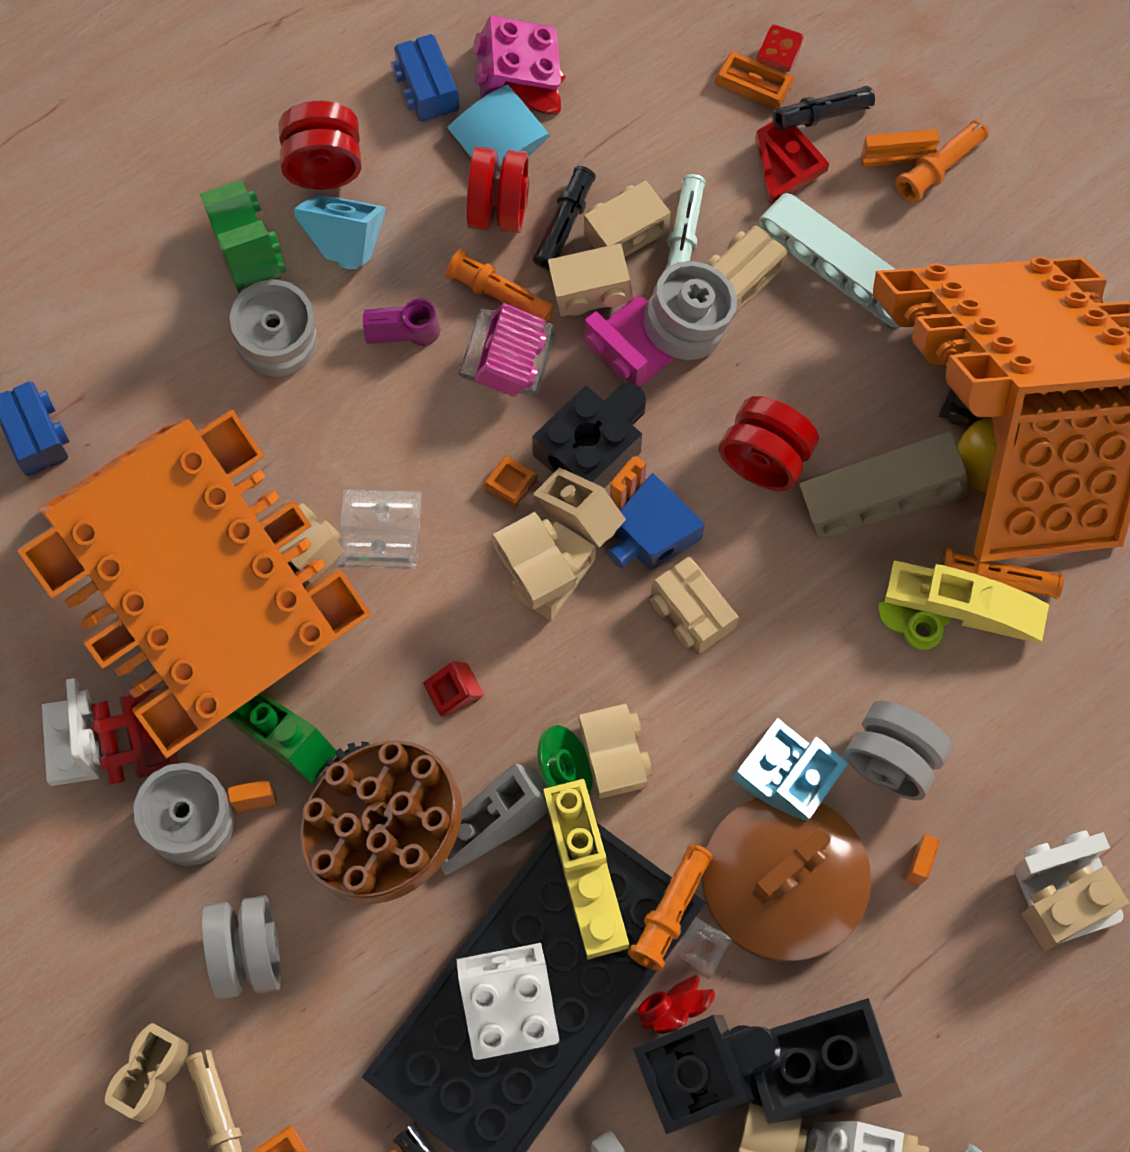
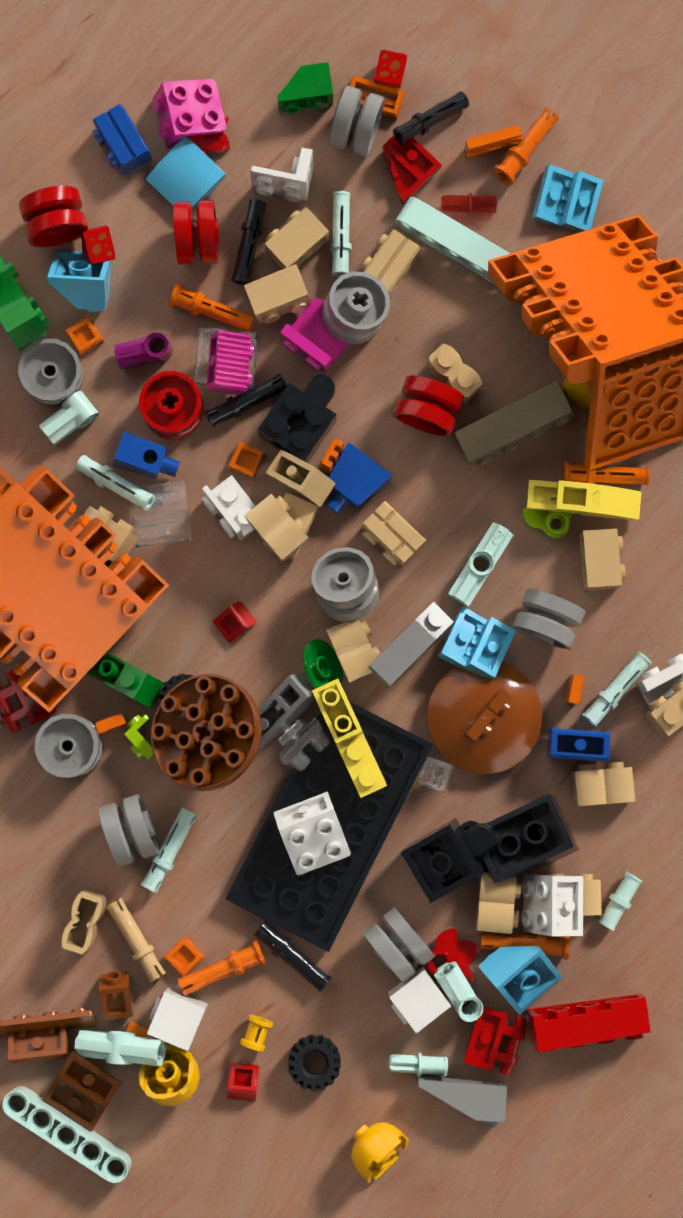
camera: 15 degrees left, 15 degrees up
(286, 833) = (140, 745): none -> lime bracket
(289, 998) = (163, 861): none -> light aqua pin
(294, 385) = (74, 414): none -> light aqua piece
(316, 469) = (89, 467): none -> light aqua pin
(328, 297) = (84, 336): none -> orange tile
(368, 189) = (97, 245): none -> red slope
(370, 449) = (131, 454): none -> blue torso
(424, 393) = (170, 388): none -> red wheel
(473, 531) = (231, 504): none -> white bracket
(517, 407) = (245, 401): none -> black pin
(534, 855) = (293, 751): none -> clear hips
(616, 656) = (345, 584): none -> light grey wheel
(624, 151) = (291, 186): none -> white bracket
(663, 923) = (407, 765): orange pin -> none
(670, 56) = (307, 89): none -> green slope
(671, 1010) = (421, 820): red plate -> none
(696, 753) = (410, 644): none -> light grey slope
(728, 94) = (353, 119): none -> light grey wheel
(794, 681) = (490, 549): none -> light aqua piece
(806, 396) = (449, 369): none -> tan brick
(859, 215) = (469, 203): none -> clear red axle
(919, 938) = (578, 744): none -> blue brick
(948, 1007) = (603, 785): none -> tan brick
(971, 882) = (620, 685): none -> light aqua pin
(983, 686) = (601, 559): none -> tan brick
(988, 229) = (567, 199): none -> medium azure slope

